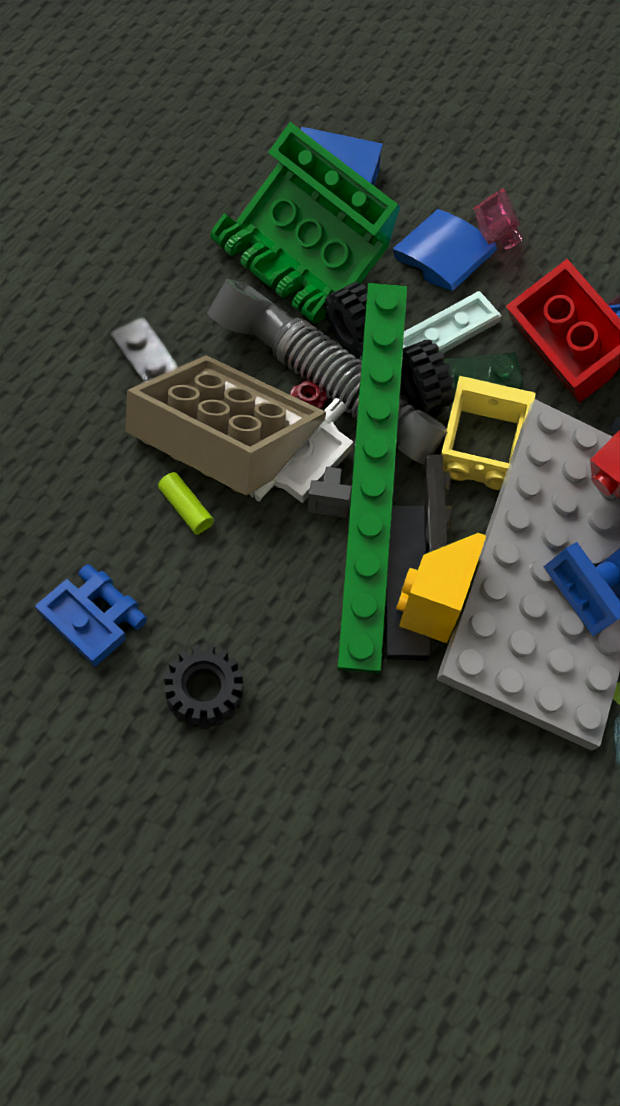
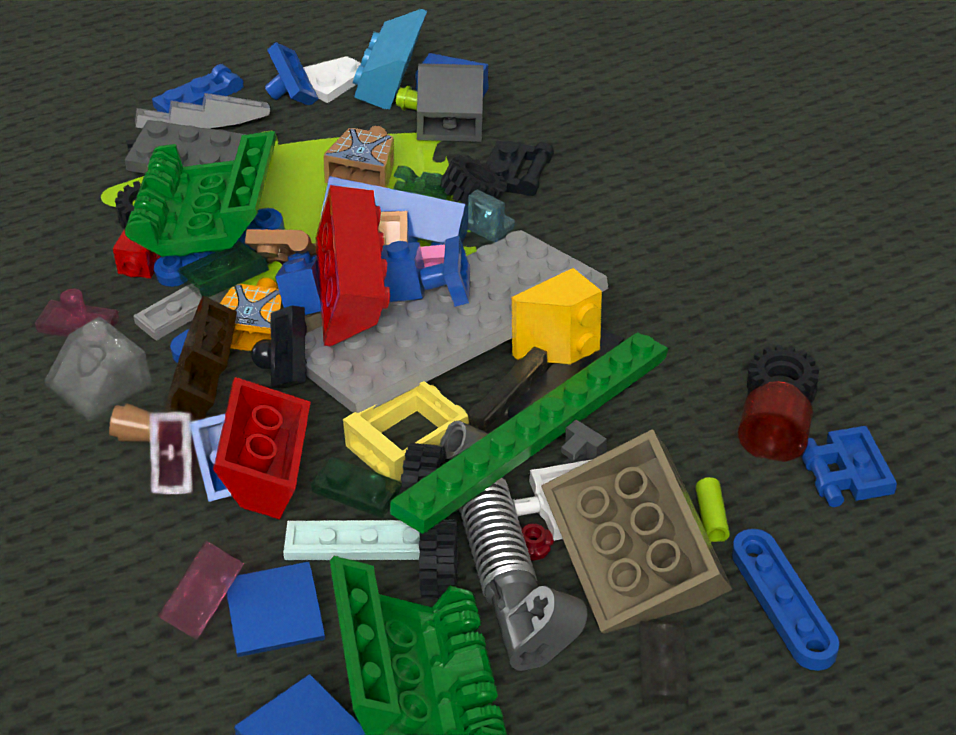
camera: 140 degrees left, 20 degrees down
(82, 447) = (785, 600): none -> blue plate
(175, 605) = (776, 422): none -> clear red piece

